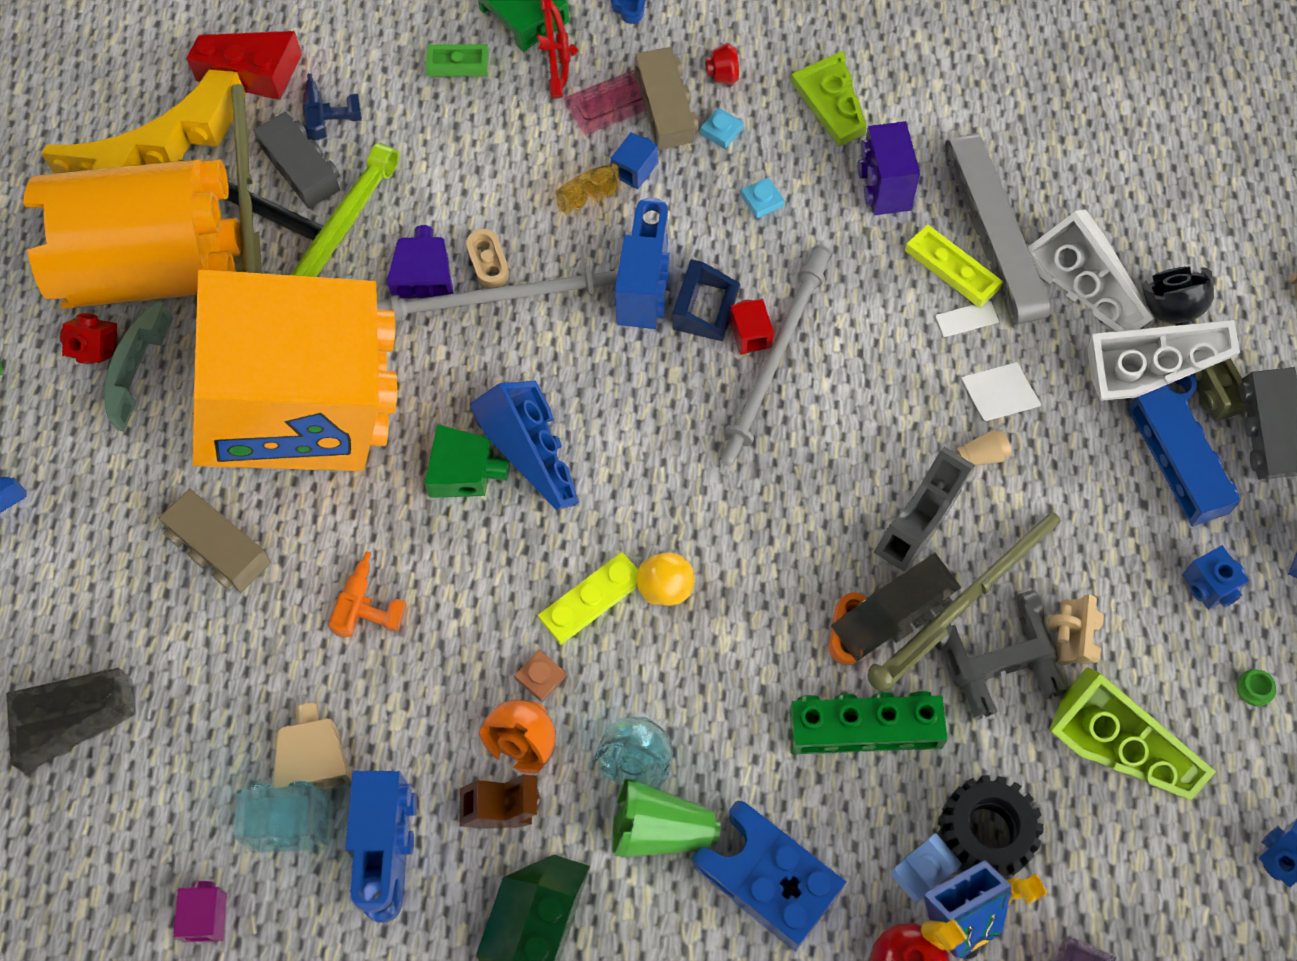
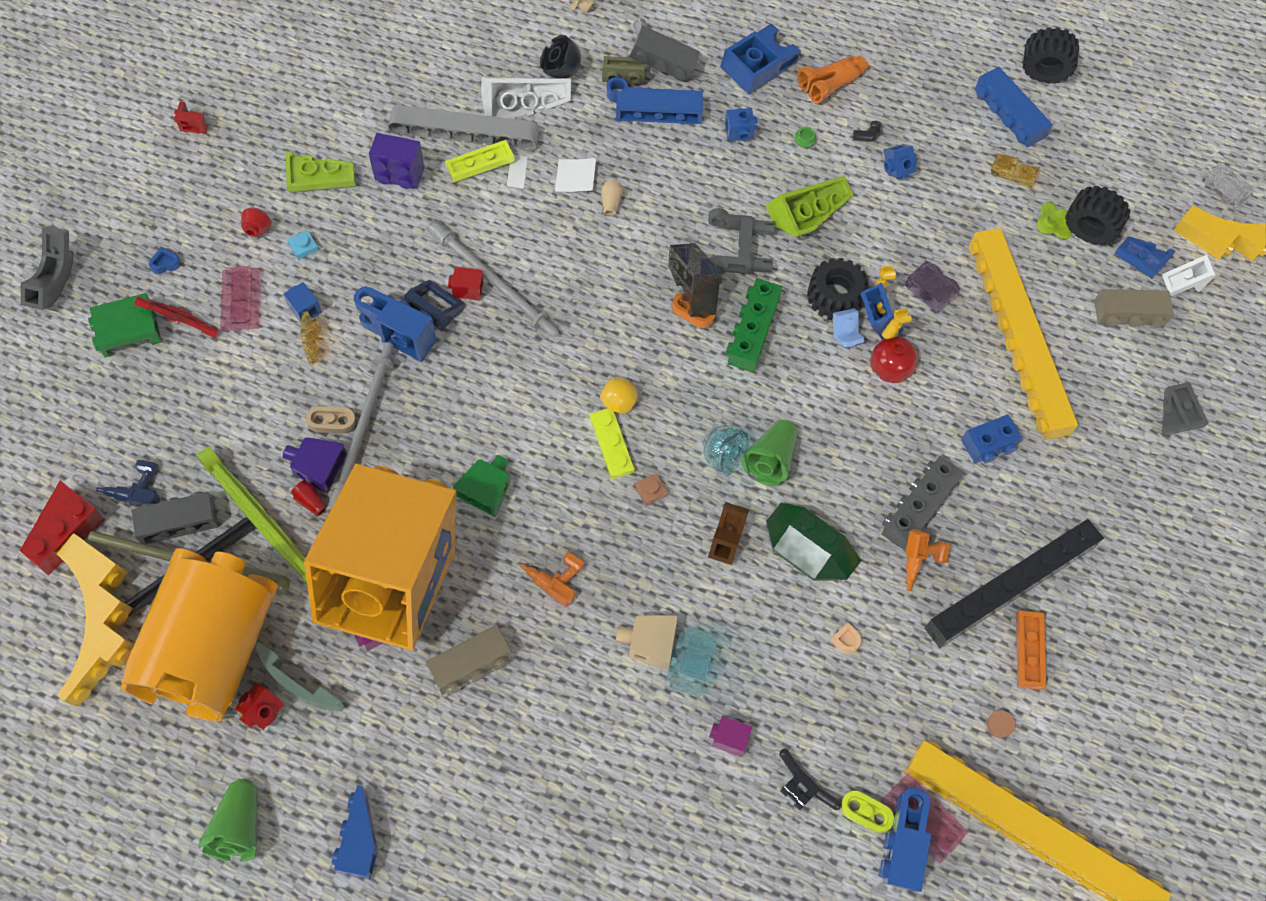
camera: 75 degrees left, 0 degrees up
(64, 713) = (558, 793): clear smoke wedge -> none
(376, 270) = (308, 497): none -> red cone
(379, 840) = (729, 608): blue brick -> none
(457, 60) = (147, 384): bright green plate -> none
(516, 423) = (470, 443): blue wedge -> none
(521, 732) = (691, 504): orange cylinder -> none
(665, 98) = (264, 265): dark tan brick -> none
(757, 870) = (826, 405): blue brick -> none
(762, 197) = (371, 242): medium azure plate -> none
(885, 676) = (738, 296): olive bar -> none
(925, 511) = (646, 254): dark grey arch -> none
(1076, 630) = (741, 200): tan hips -> none
(1146, 359) = (599, 91): white wedge -> none

